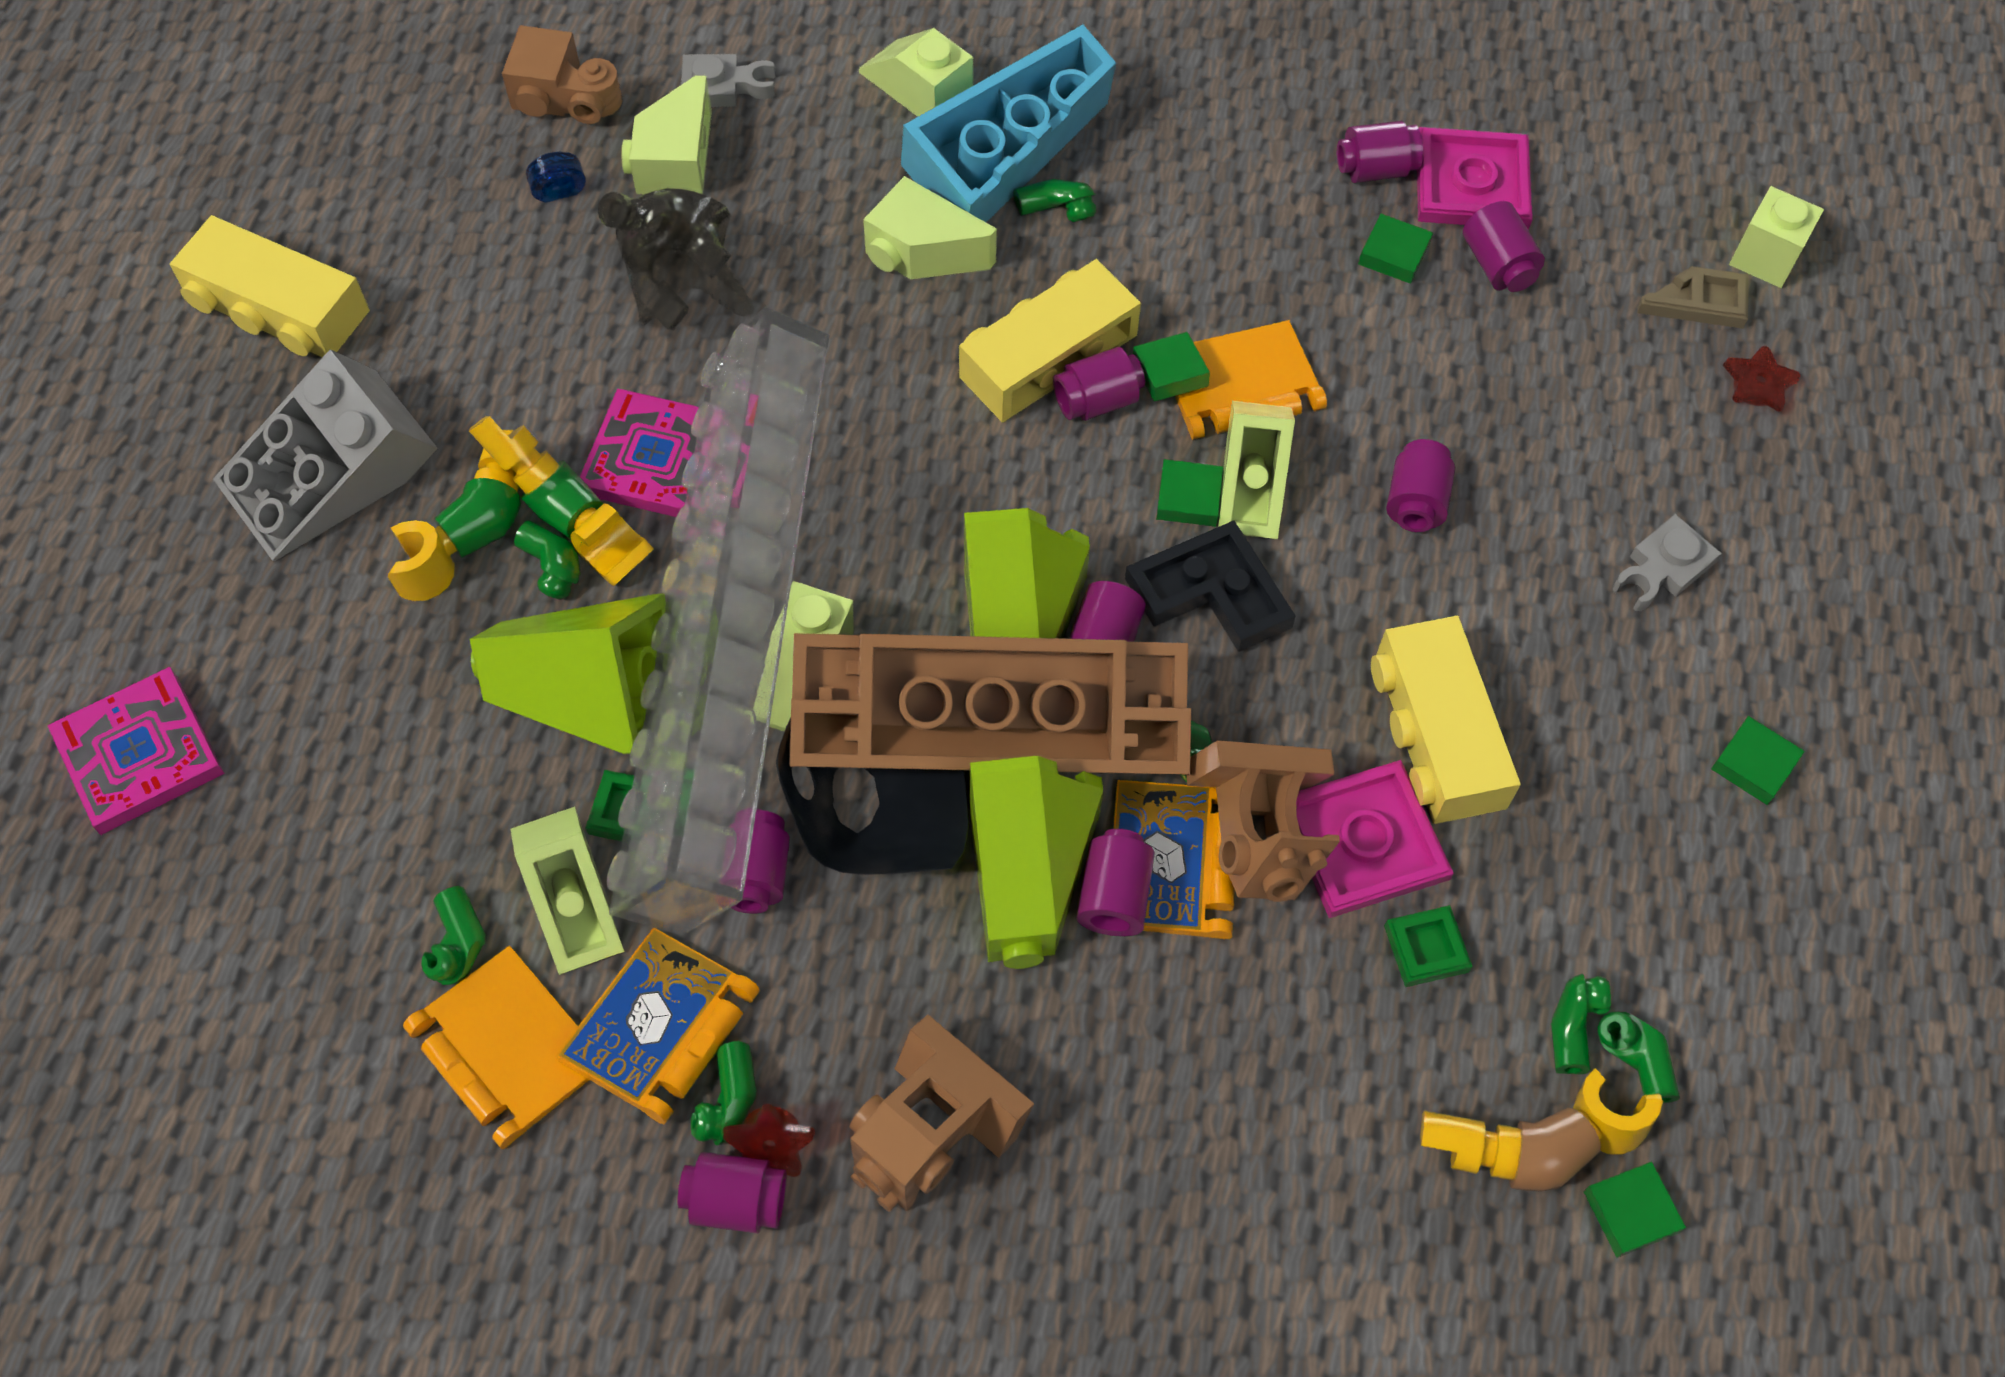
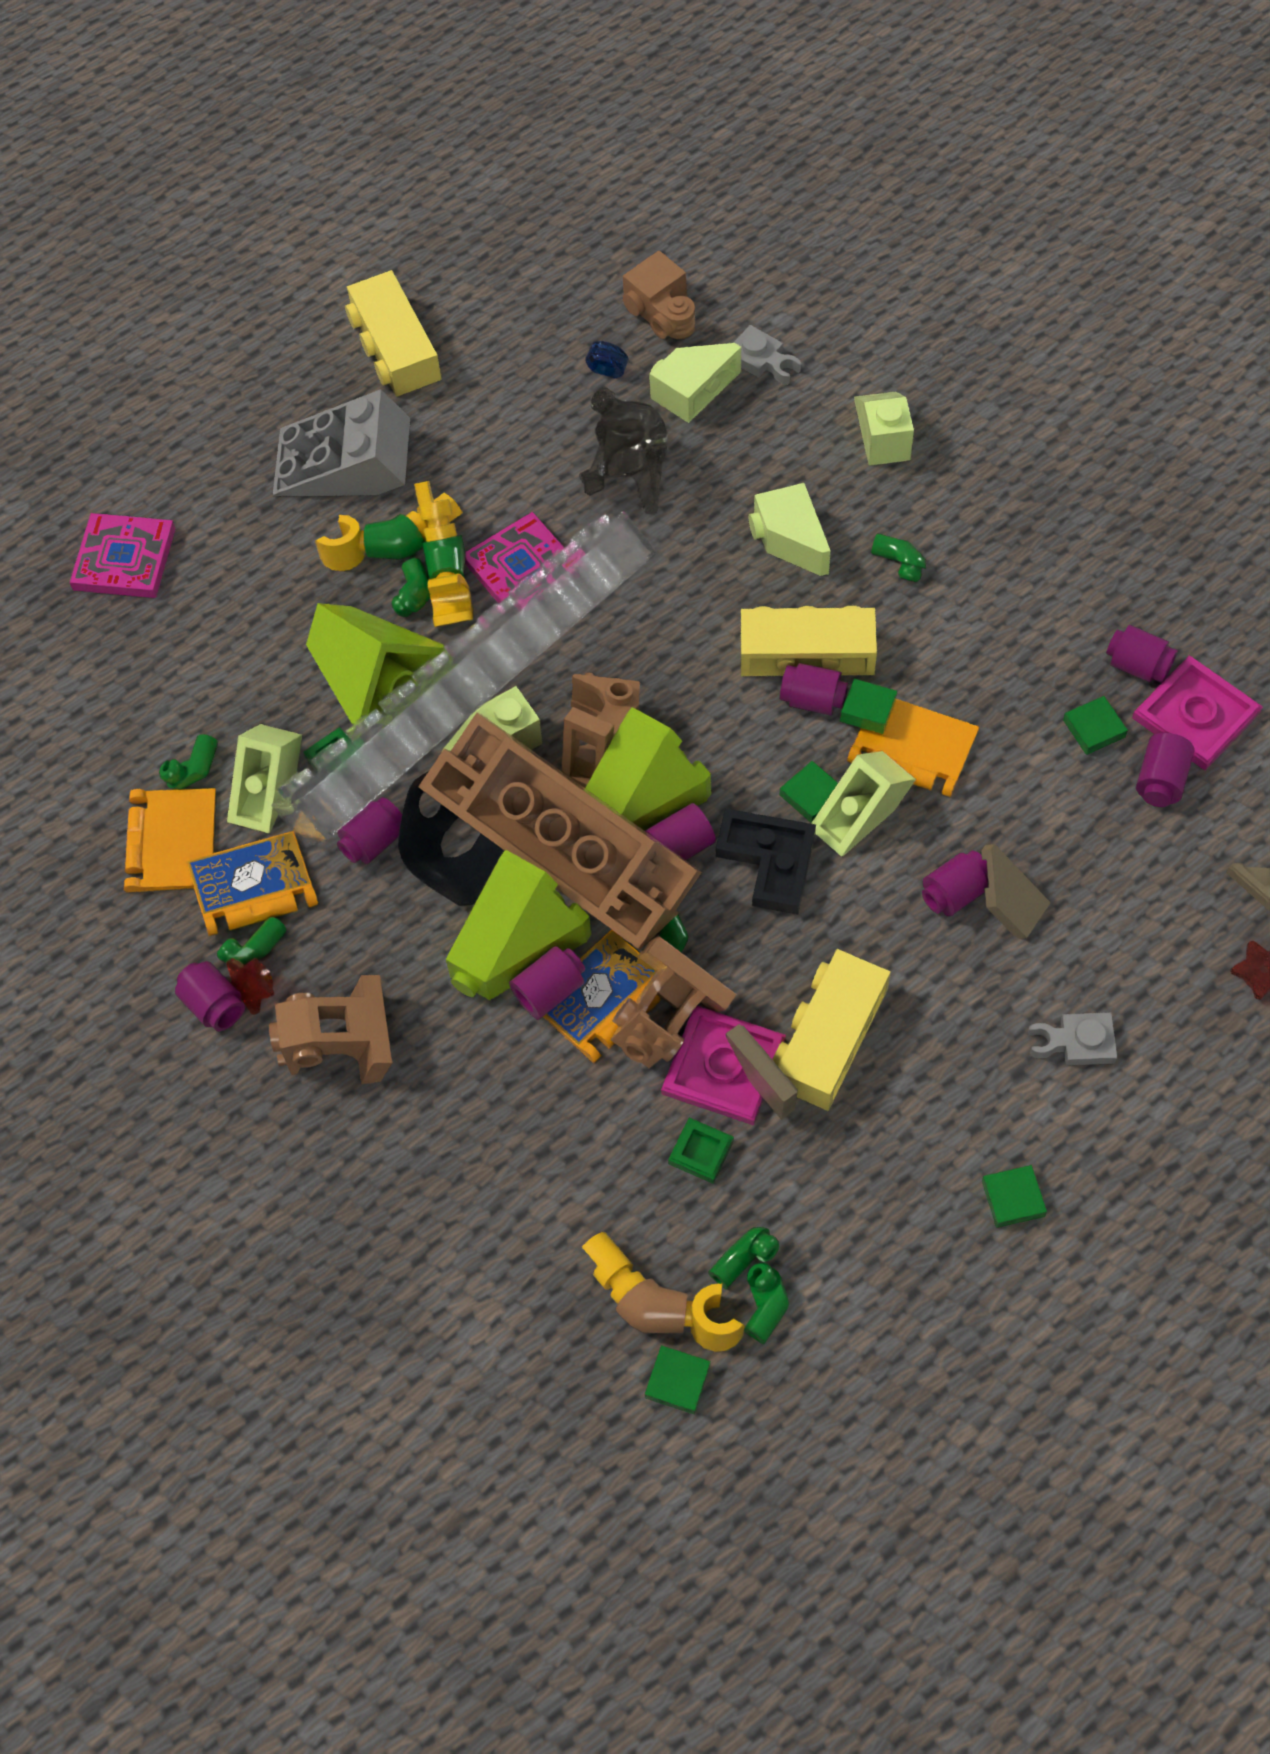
camera: 45 degrees right, 0 degrees up
(921, 542) = (595, 716): none -> medium nougat tile
(1008, 124) = (904, 490): medium azure wedge -> none
(1437, 812) = (763, 1072): none -> dark tan tile
(1490, 462) = (1011, 894): none -> dark tan tile

